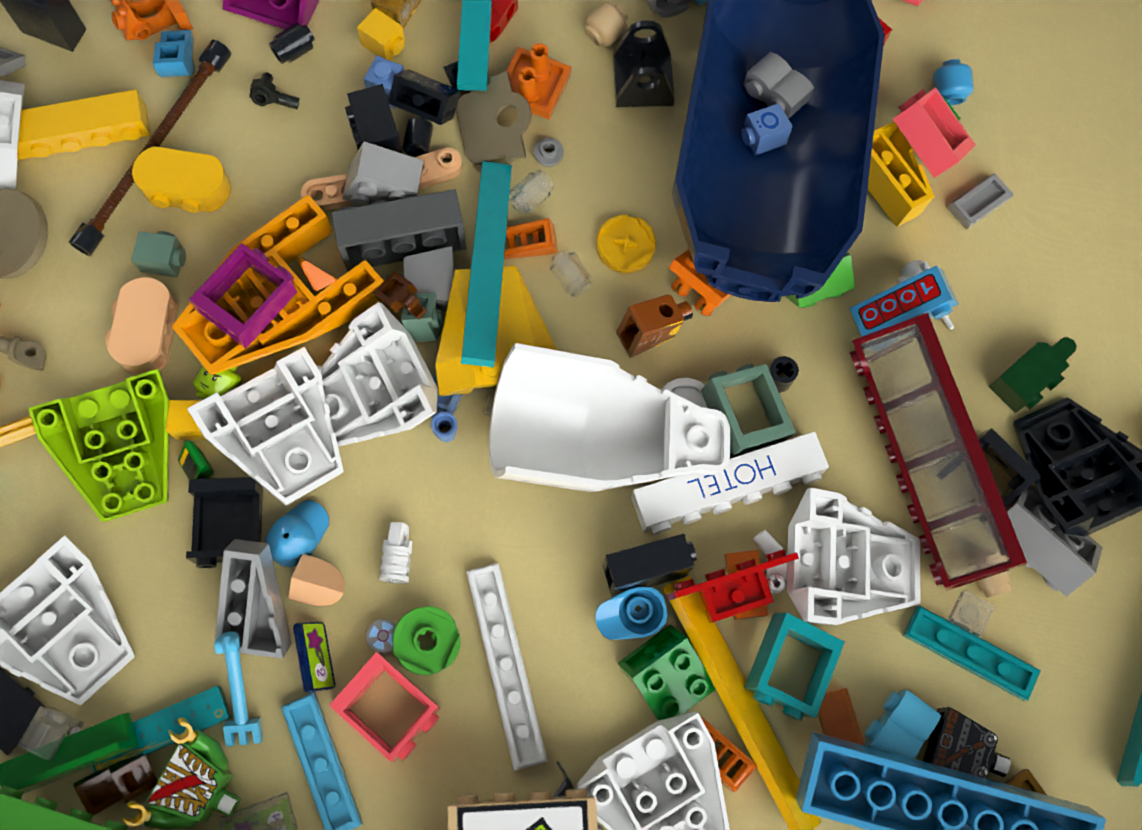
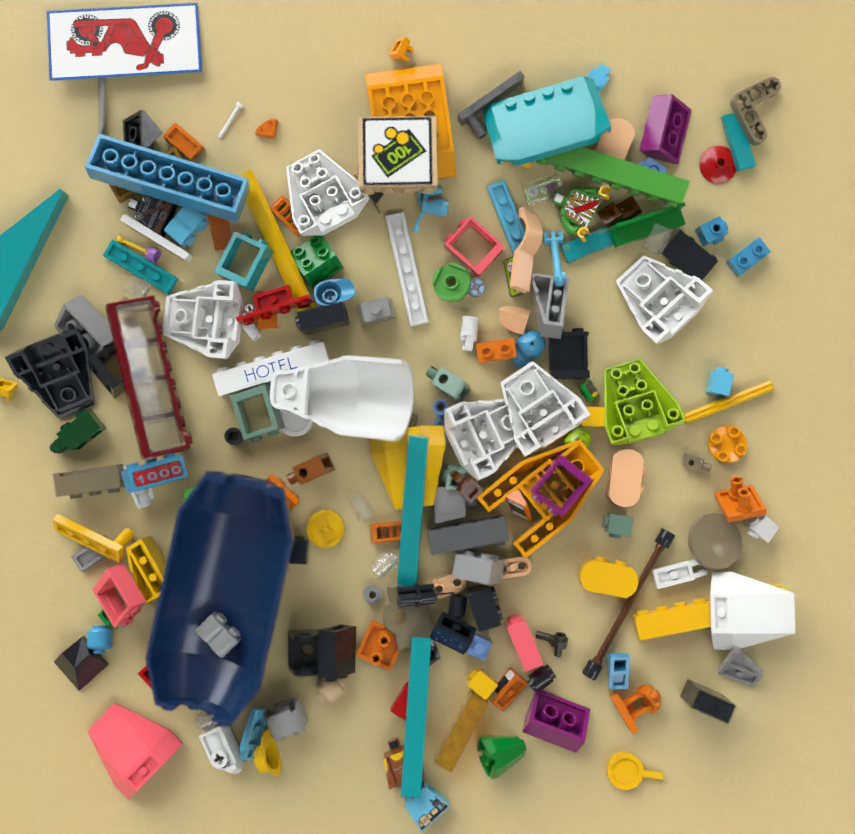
camera: 175 degrees left, 15 degrees up
(71, 188) = (676, 574): none -> white hinge
(293, 690) = (525, 252): none -> light nougat piece
(316, 82) = (523, 642): none -> coral window
(341, 34) = (508, 689): none -> orange slope
(348, 524) = (496, 350): none -> orange piece
(421, 454) = (454, 387): none -> sand green torso
(456, 780) = (436, 207): none -> medium azure piece
(478, 144) = (417, 595): none -> black piece
(556, 583) = (376, 311): none -> light grey torso
(599, 65) = (336, 652): none -> black brick
(663, 210) = (300, 551): none -> black brick
(766, 129) = (229, 600): medium blue brick -> none
(942, 698) = (156, 238): none -> white tile
(954, 197) = (92, 540): none -> yellow piece
(957, 676) = (151, 253): none -> hinge
(979, 51) = (80, 663): none -> black slope
(1007, 297) = (89, 480): none -> dark tan wedge

